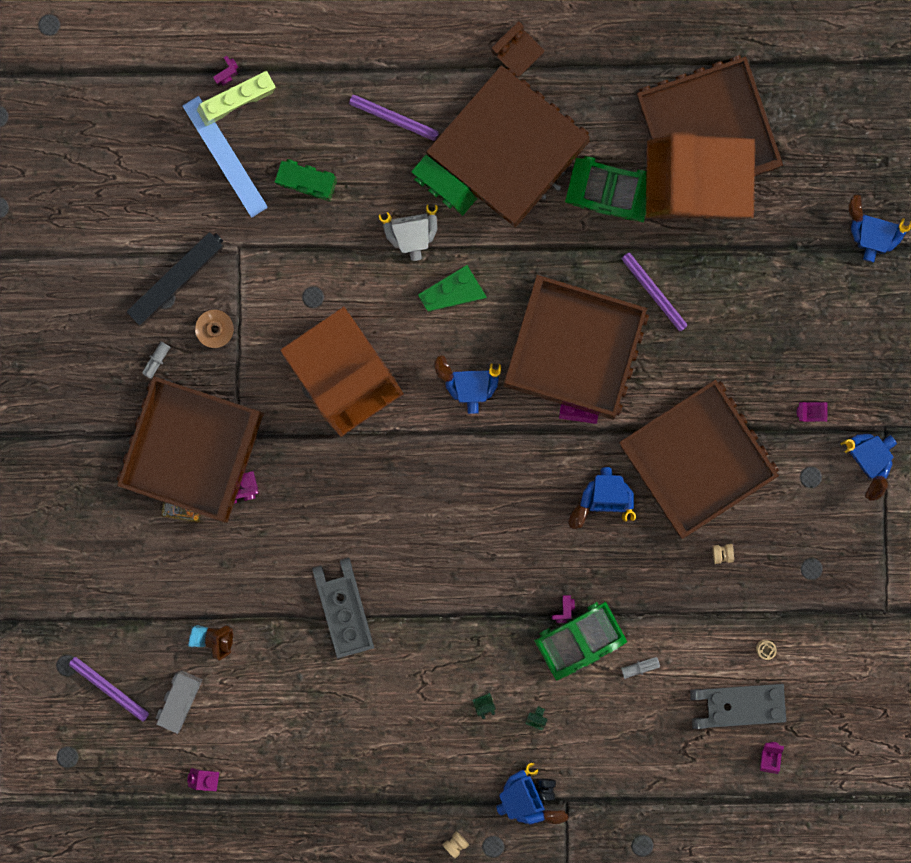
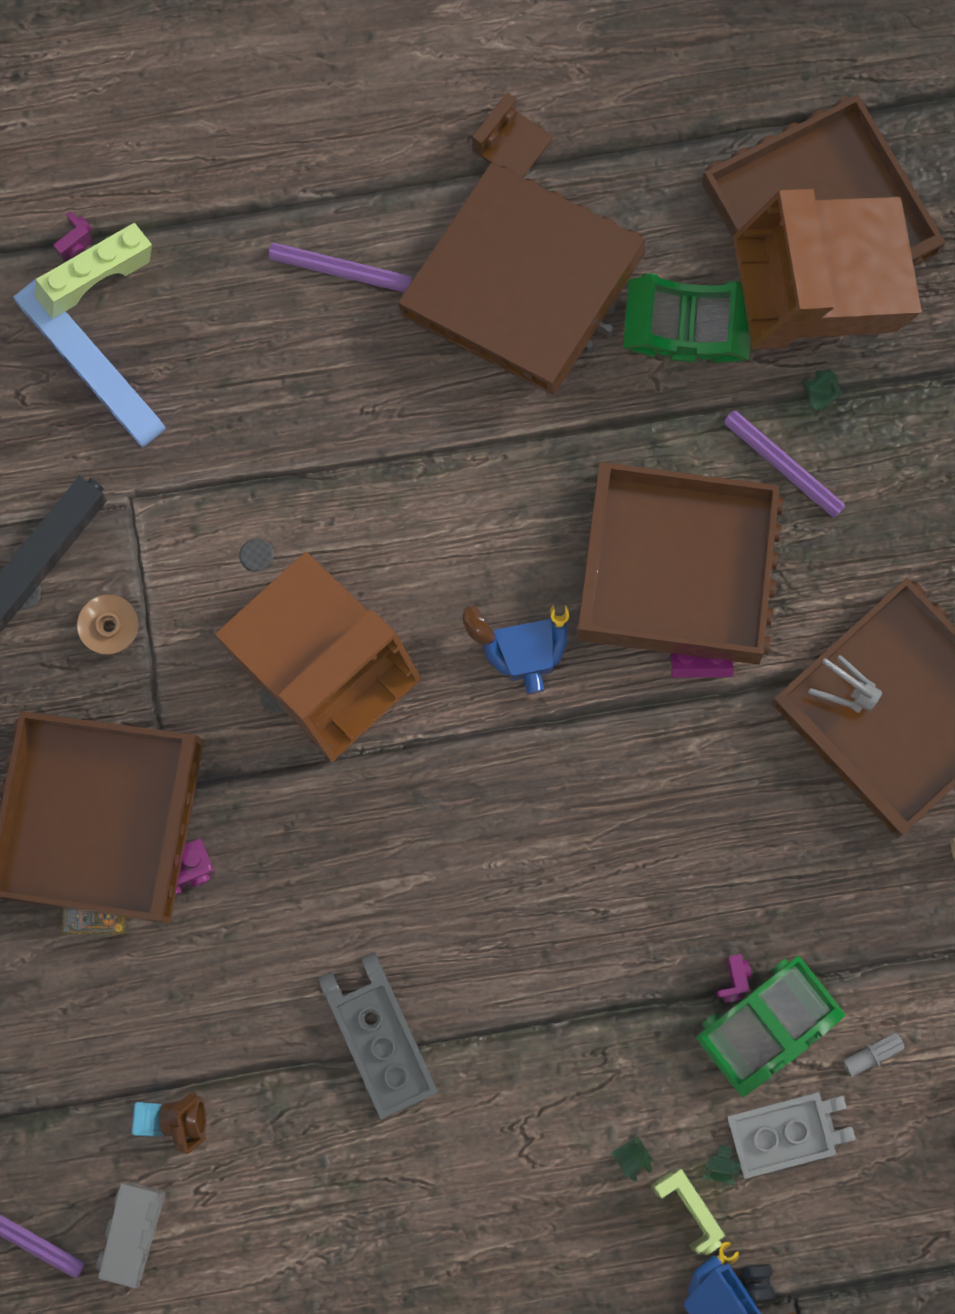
camera: 15 degrees left, 10 degrees down
(155, 360) = (22, 688): light grey axle -> none
(306, 180) = (220, 377): green wedge -> none
(411, 232) = (394, 430): light grey torso -> none
(444, 185) = (434, 352): green wedge -> none
(452, 291) = (472, 508): green wedge -> none
(507, 722) = (711, 1231): none -> yellowish green panel
(579, 705) = (787, 1134): none -> light grey tile
(604, 494) = (766, 784): blue torso -> none
(674, 449) = (864, 691): none -> light grey plant
(687, 248) = (822, 389): none -> clear green tile

